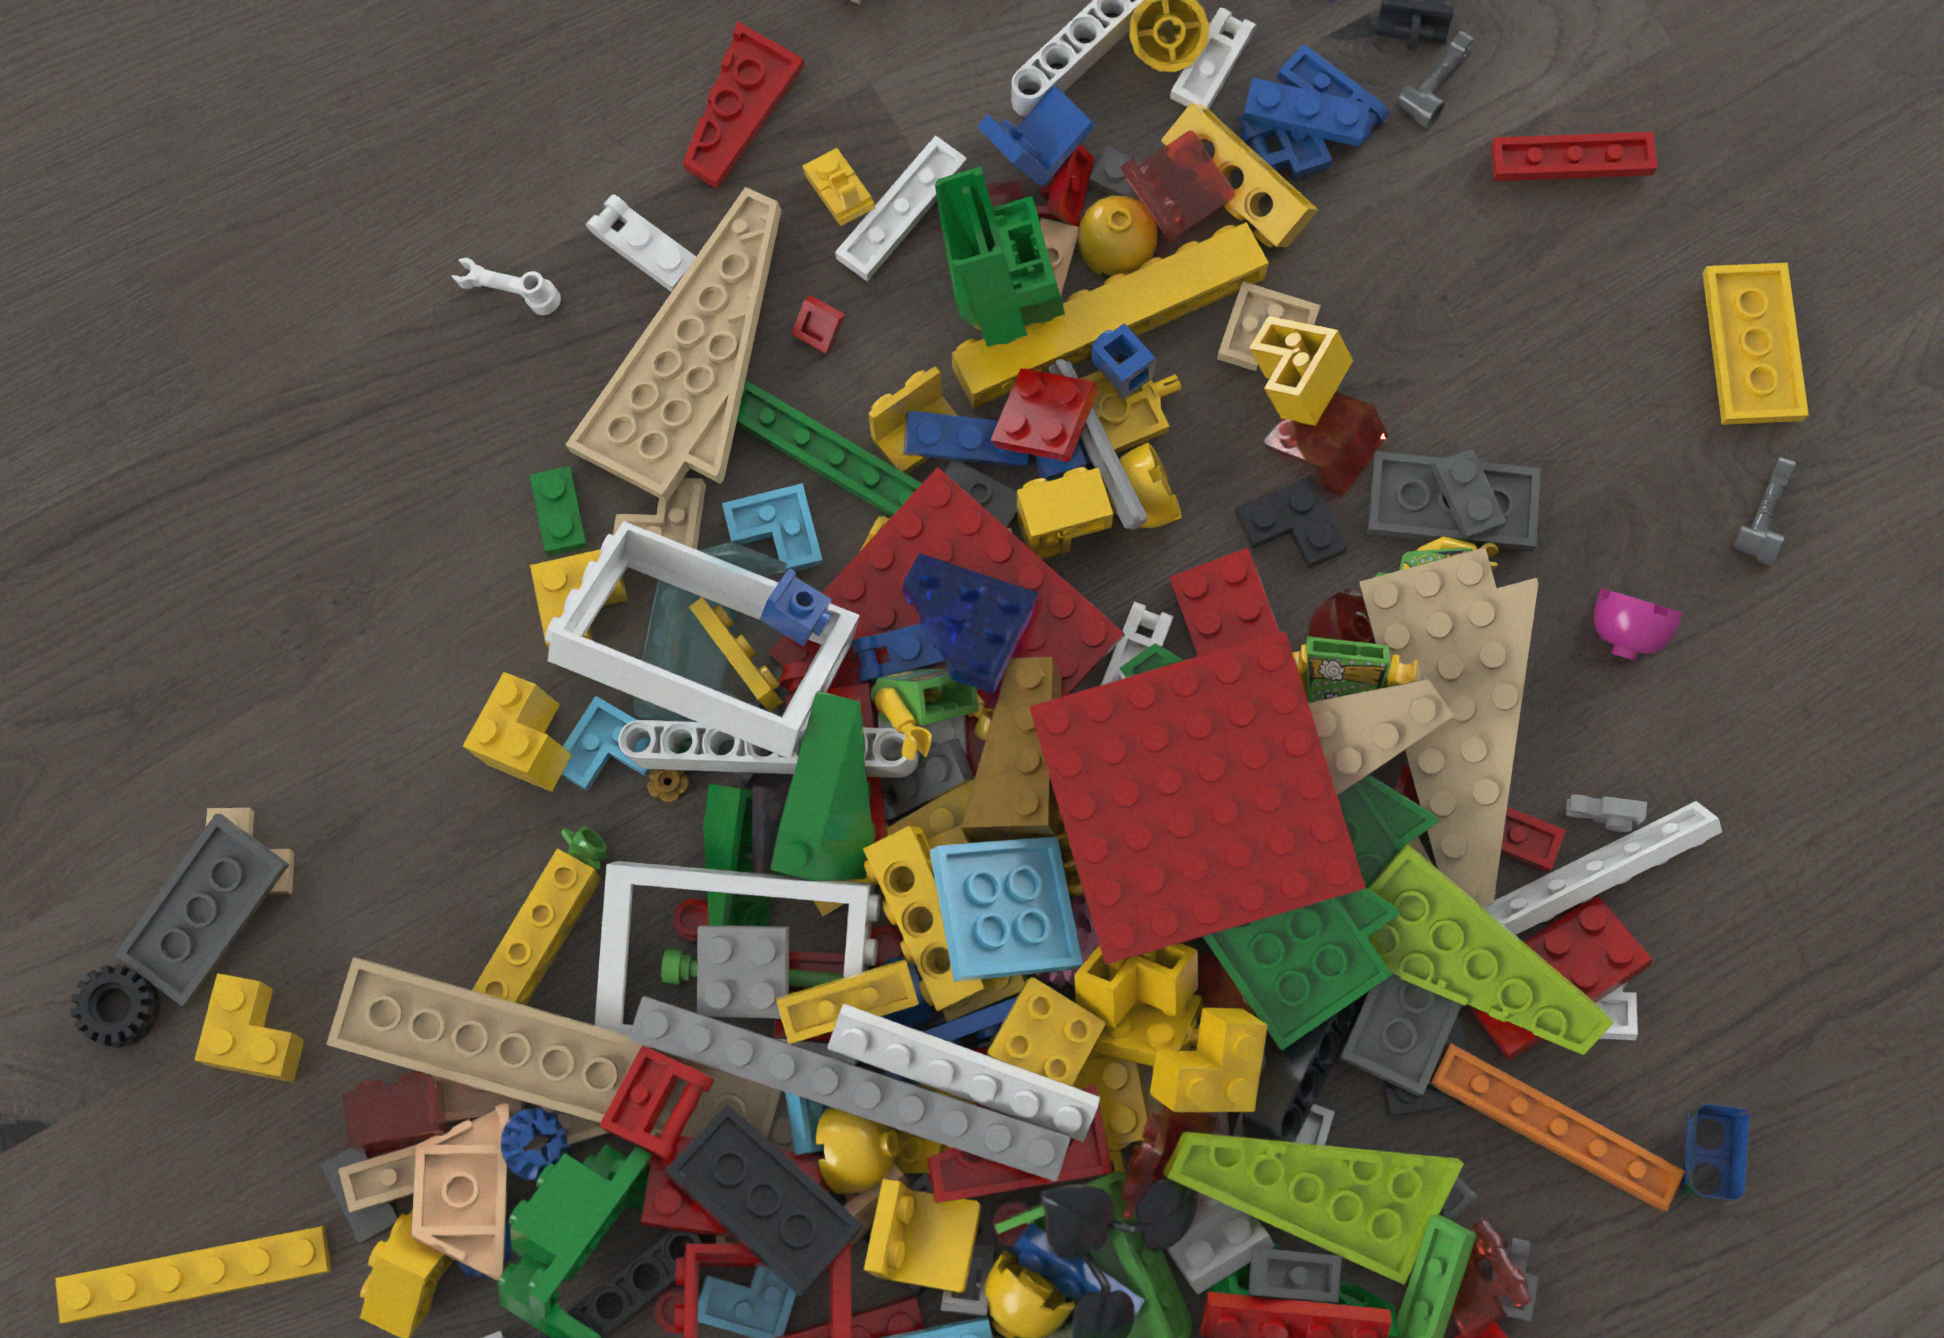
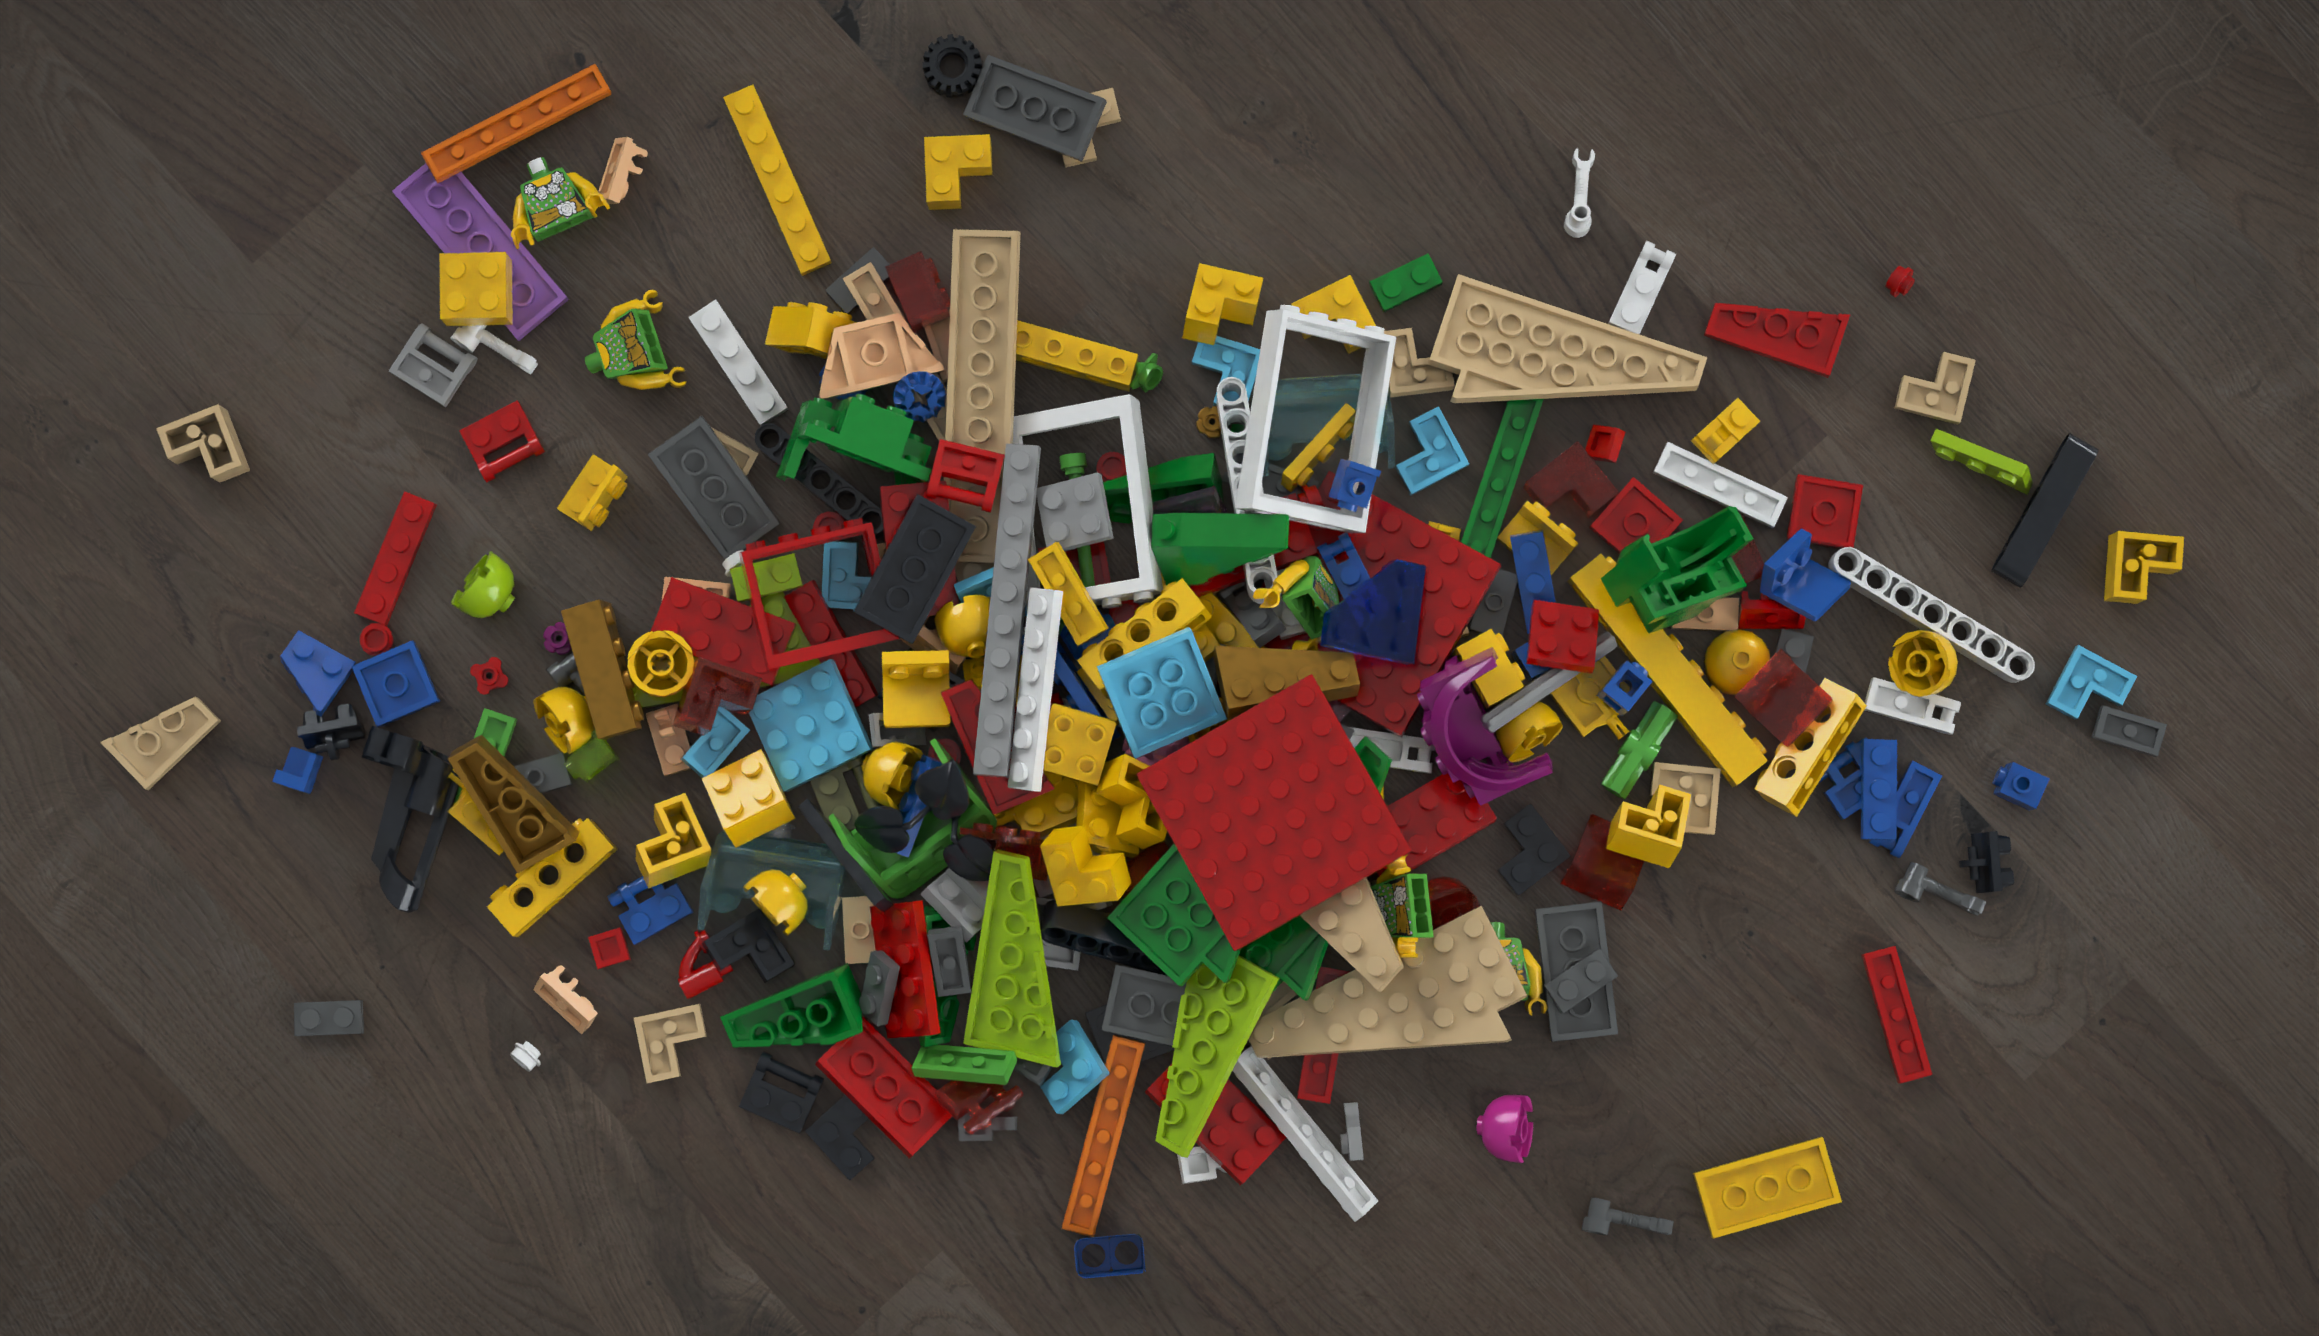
camera: 75 degrees right, 10 degrees up
(850, 363) = (1573, 474): none -> clear red brick
(920, 311) = (1633, 515): none -> red plate
(959, 100) = (1825, 510): none -> red plate
(1138, 563) = (1456, 731): none -> magenta piece
(1199, 368) = (1639, 750): none -> bright green piece
(1468, 1135) = (1080, 1070): none -> medium azure plate

